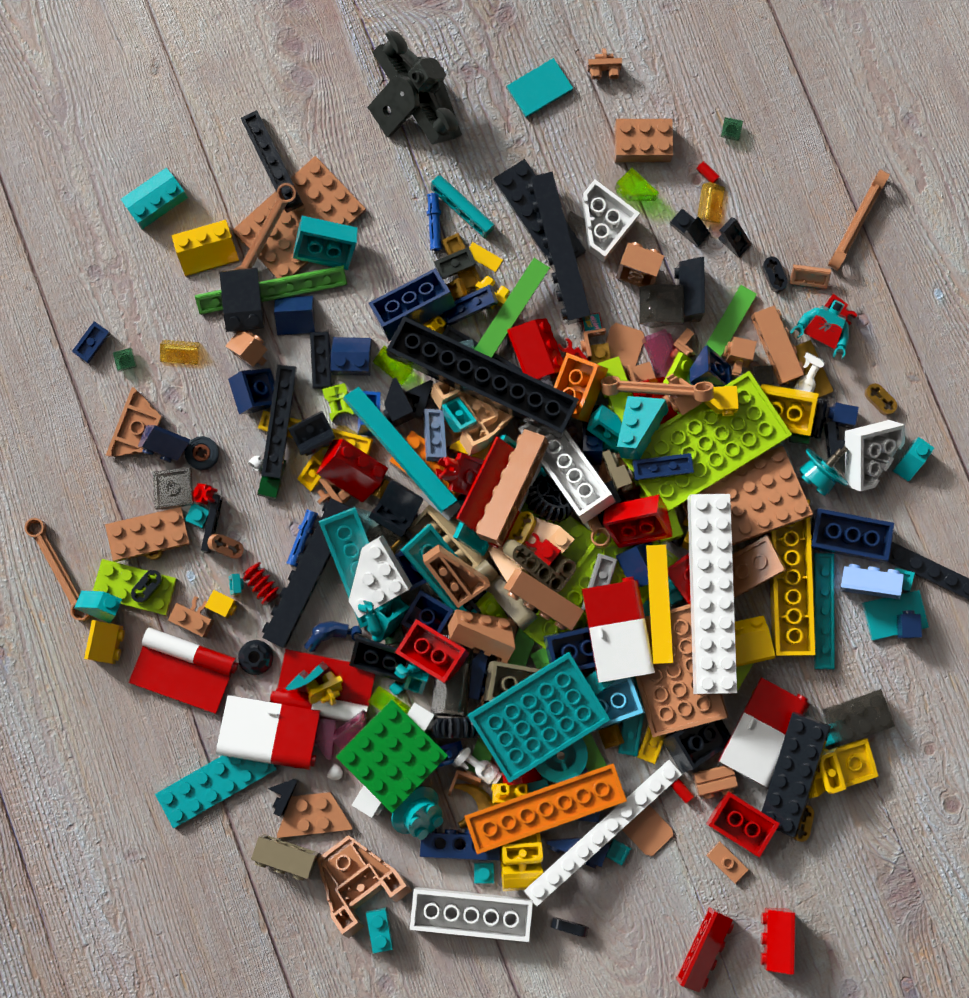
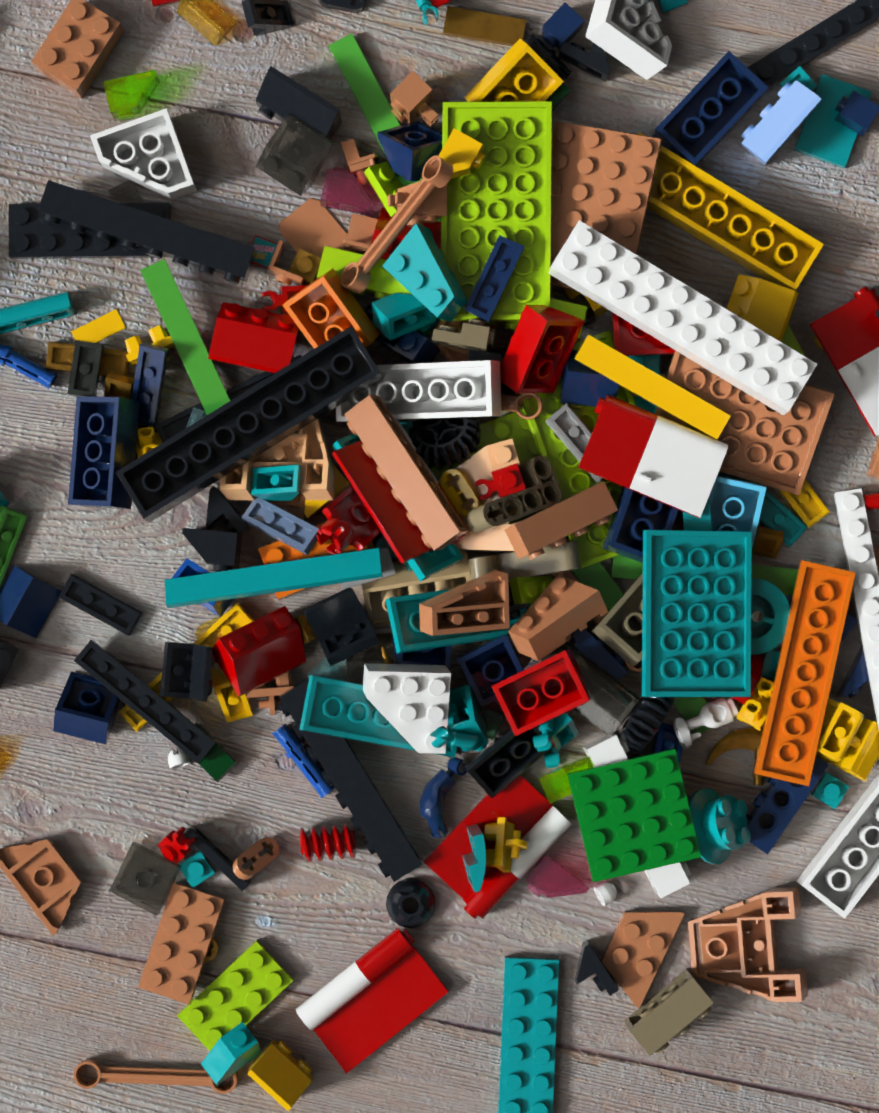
camera: 65 degrees left, 5 degrees up
(142, 583) = (251, 980): black beam -> none
(163, 443) = (83, 857): dark blue slope -> none
(191, 619) = (317, 953): nougat brick -> none
(198, 462) = (131, 829): black bush -> none
(221, 604) = (322, 905): yellow brick -> none
(235, 584) = (309, 874): teal plate -> none
(247, 347) = (30, 683): nougat brick -> none
(268, 733) = (512, 943): door -> none
(335, 394) = (153, 613): lime piece -> none
(350, 729) = (570, 845): clear pink slope -> none
(351, 356) = (118, 565): dark blue slope -> none
(379, 930) = (821, 953): teal brick -> none
(392, 367) = (165, 525): clear neon green slope -> none
(466, 776) = (706, 741): nougat bracket -> none
(639, 265) = (231, 149): nougat brick -> none
(690, 228) = (220, 60): black slope -> none
(696, 744) = (840, 450): black slope -> none
(755, 565) = (677, 243): nougat plate -> none
(763, 374) = (454, 88): clear smoke tile -> none
(777, 345) = (429, 49): nougat brick -> none
(807, 382) = (497, 43): white piece -> none
(822, 472) = (615, 95): teal piece -> none
(824, 611) = (775, 199): teal tile -> none

